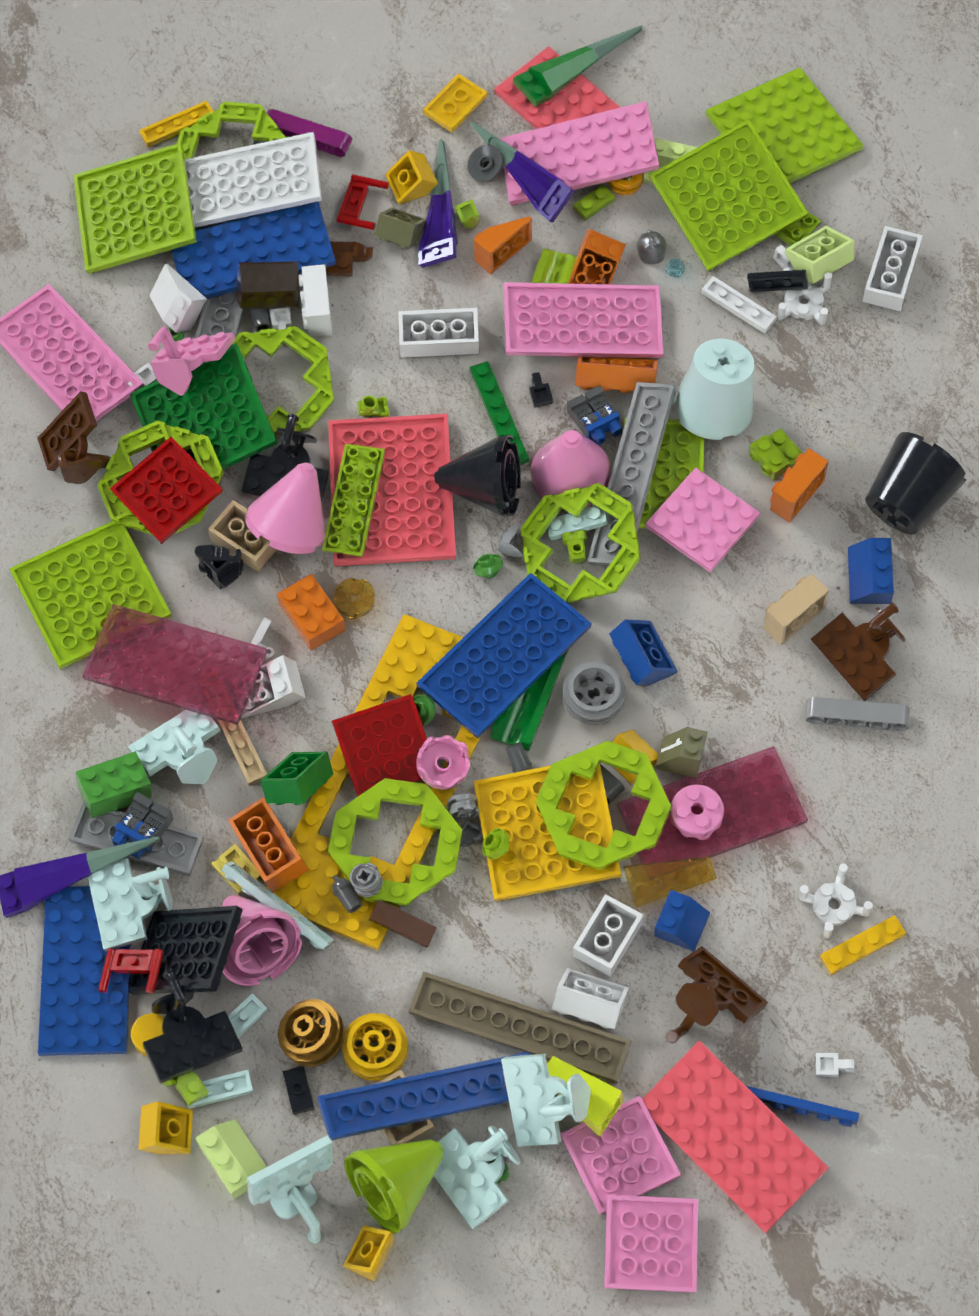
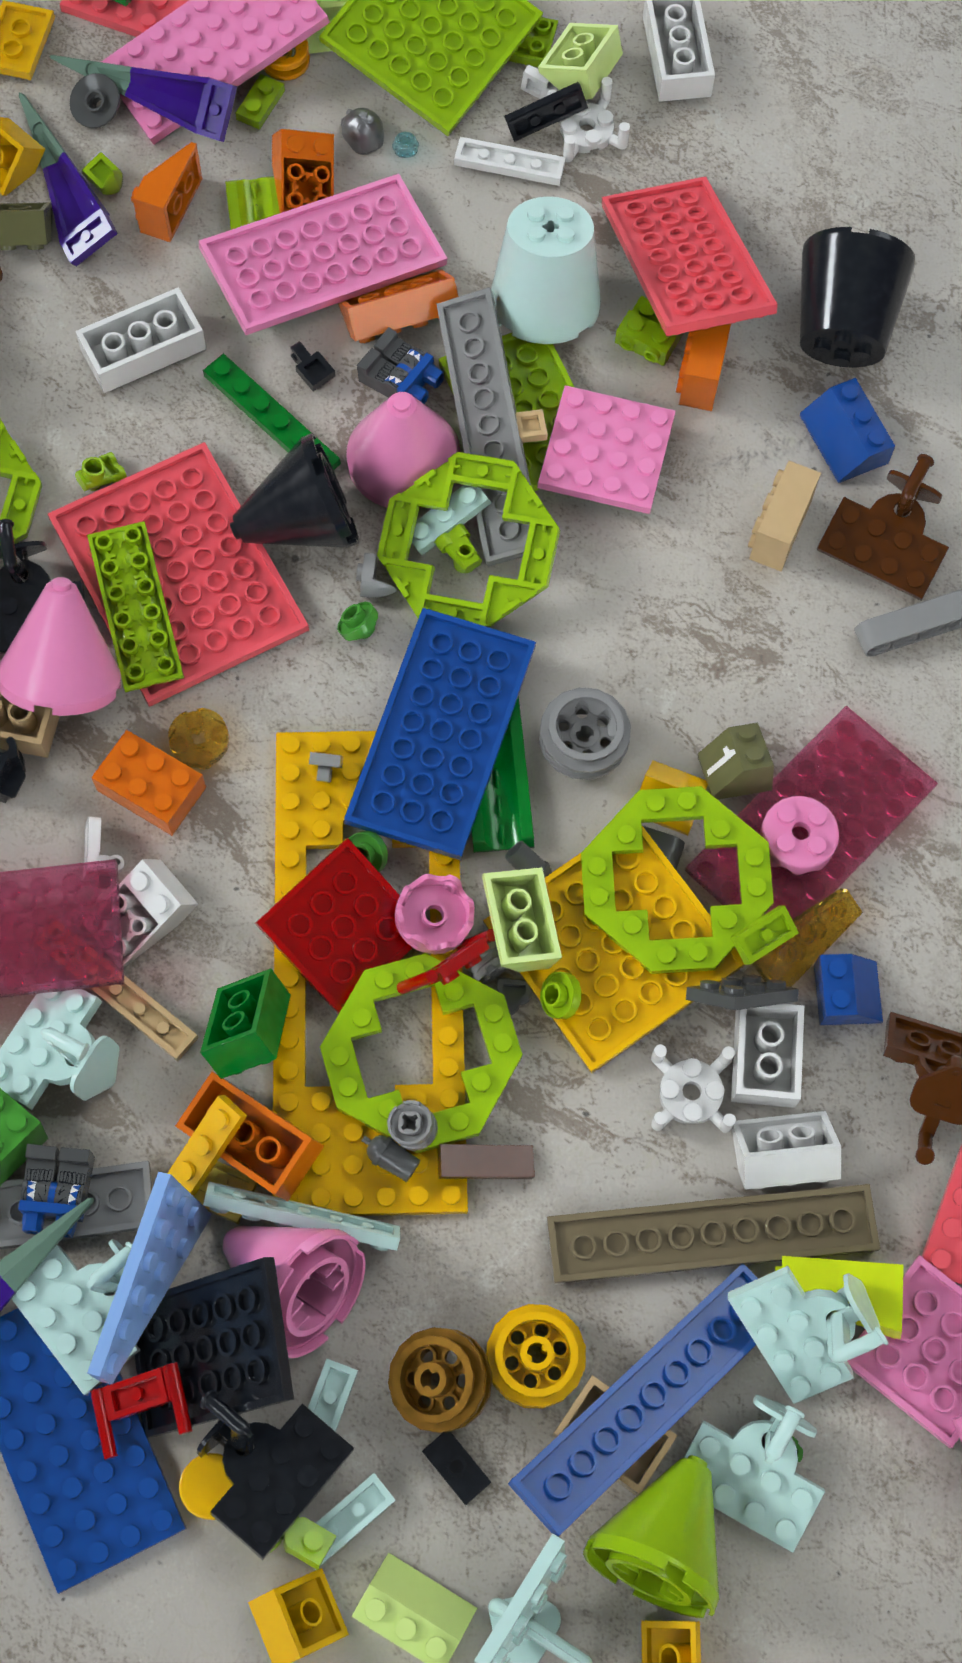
camera: 30 degrees left, 5 degrees up
(180, 884) = (161, 1246): none -> light blue wing
(232, 842) = (207, 1143): none -> yellow plate
(422, 645) = (325, 763): none -> light grey tile
(430, 796) = (446, 971): none -> red plate
(491, 787) = (522, 919): none -> yellowish green slope
(550, 926) = (701, 1075): none -> white plate
(604, 888) = (742, 994): none -> dark grey plate
(638, 860) = (764, 935): none -> lime plate
(642, 652) = (615, 653): blue slope -> none
(658, 485) = (531, 426): none -> tan tile
(818, 413) = (688, 256): none -> coral plate

